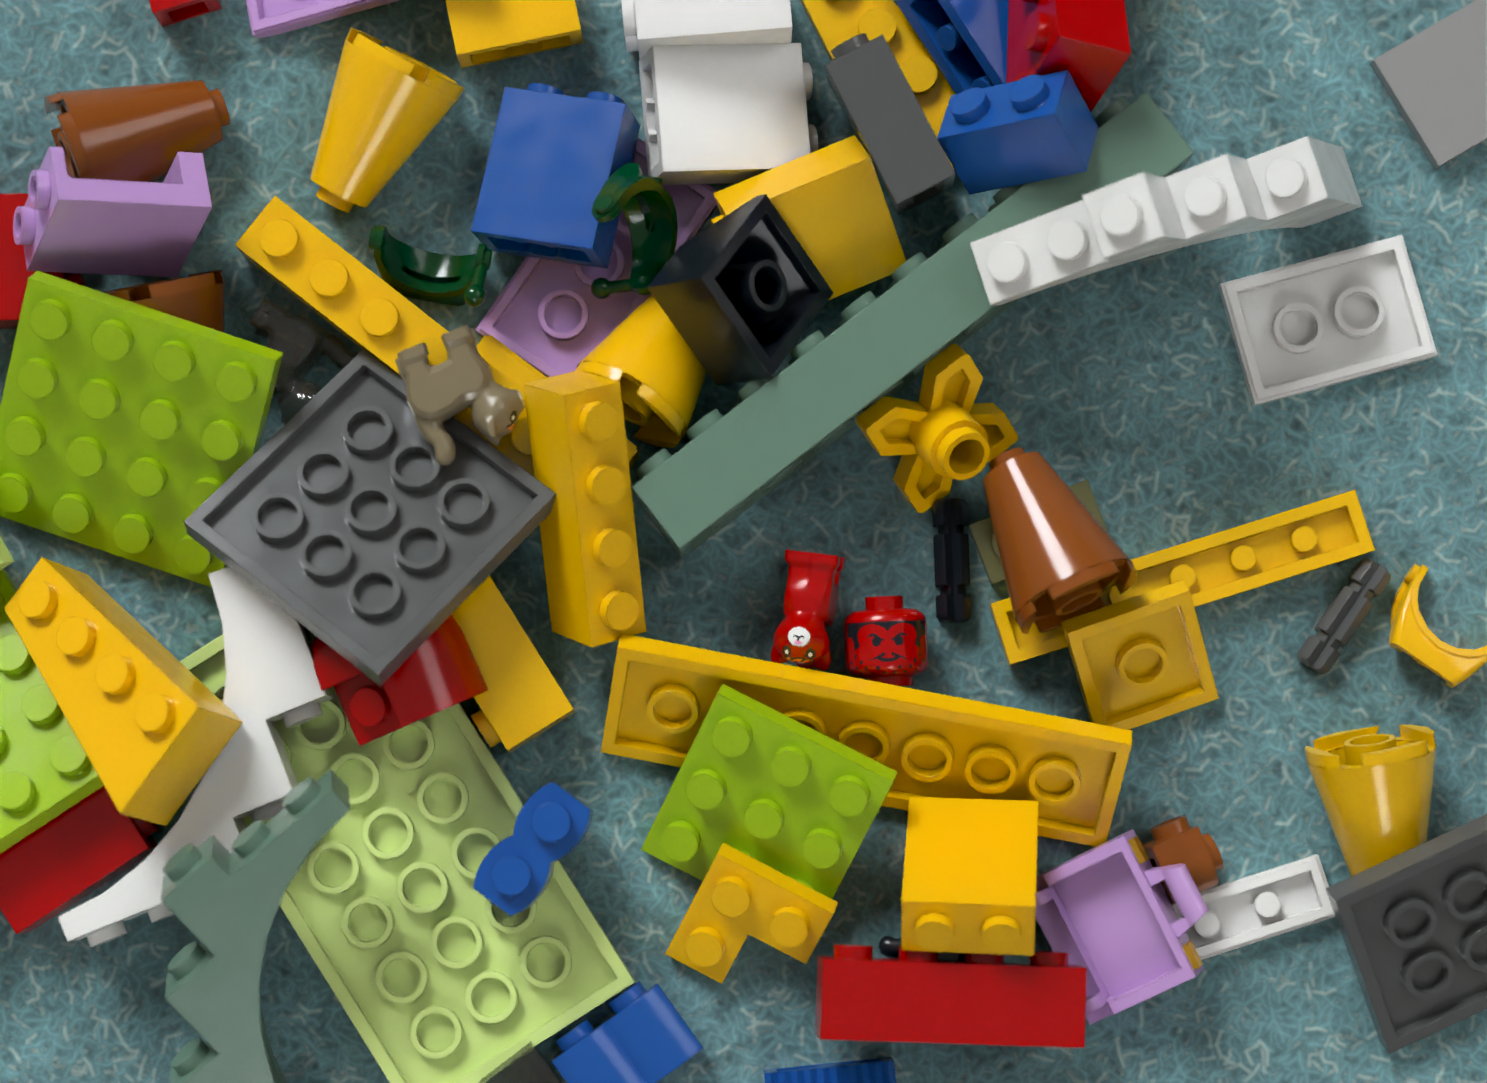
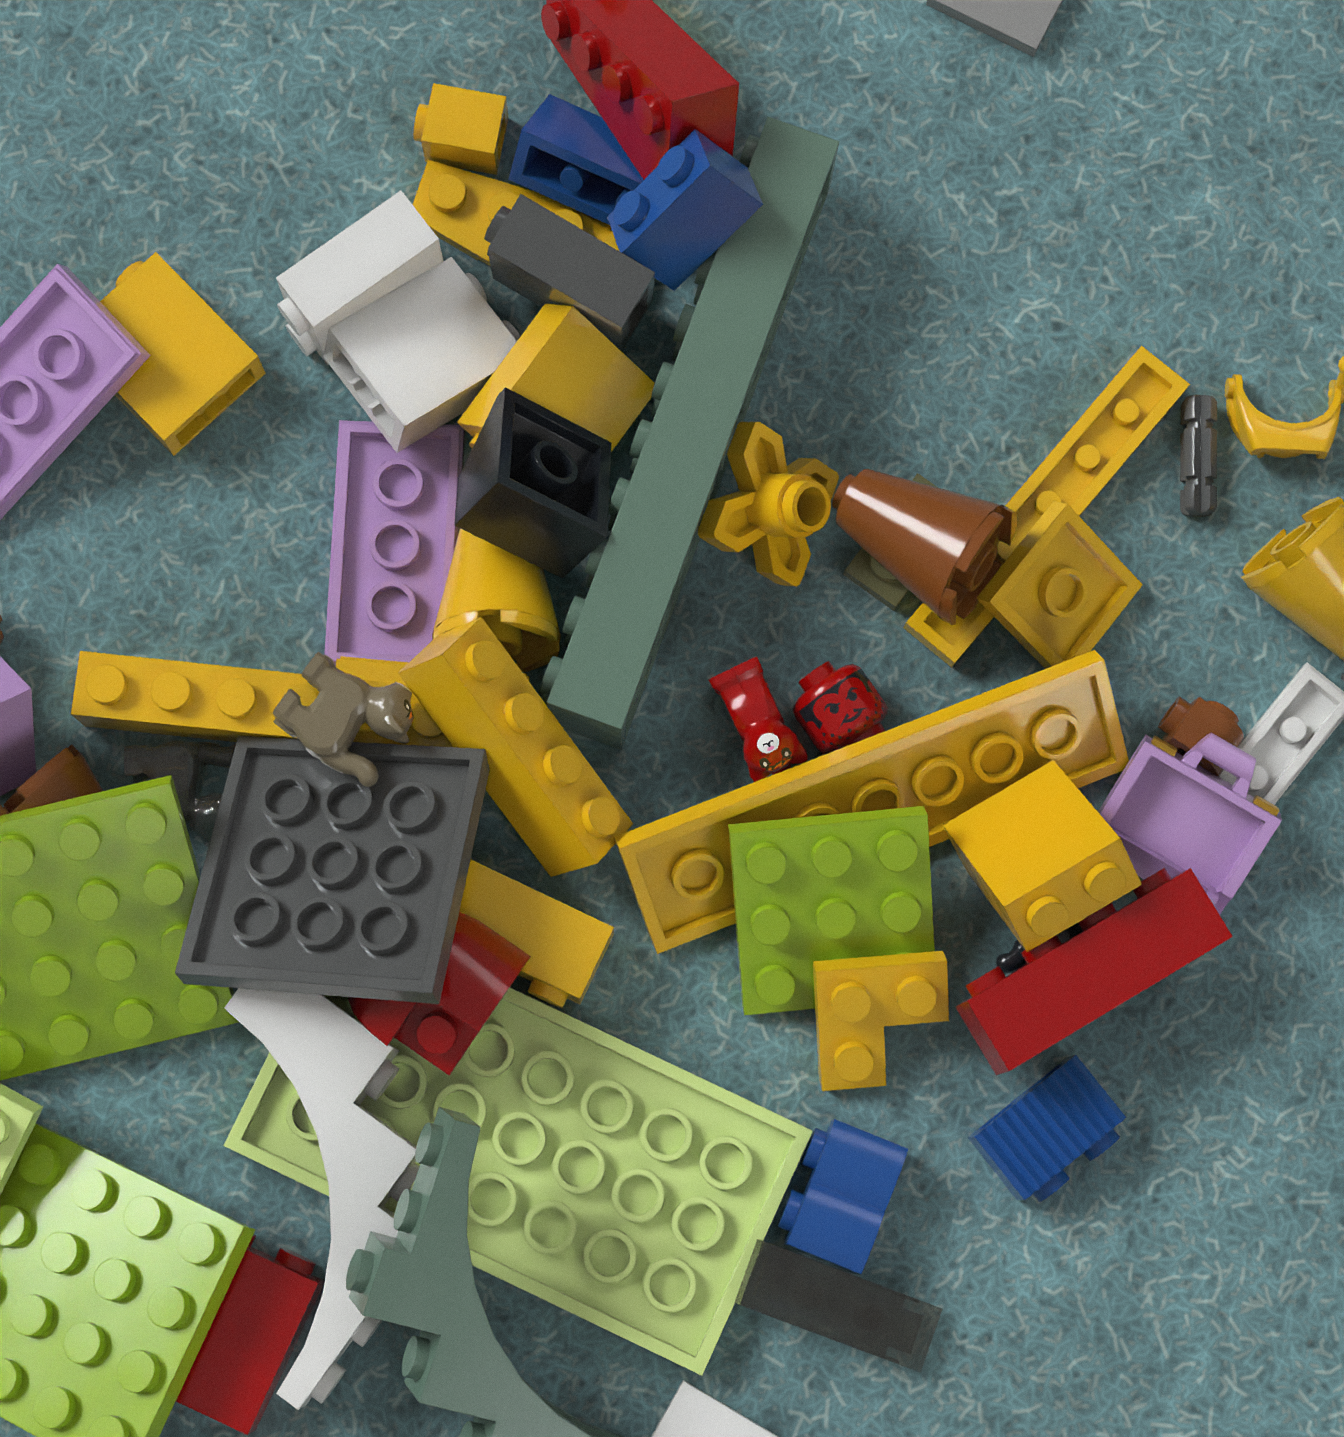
camera: 35 degrees left, 5 degrees down
(122, 692) = (218, 1161): yellow wedge -> none
(376, 119) = (127, 536): yellow cone -> none
(465, 271) = (261, 641): dark green helmet -> none
(522, 865) = (657, 1047): blue brick -> none
(548, 169) = (313, 491): blue brick -> none
(650, 222) = (423, 488): dark green helmet -> none
(951, 560) = (849, 609): black axle -> none
(1158, 214) = (843, 205): white arch -> none
(1327, 320) = (1027, 227): white tile -> none

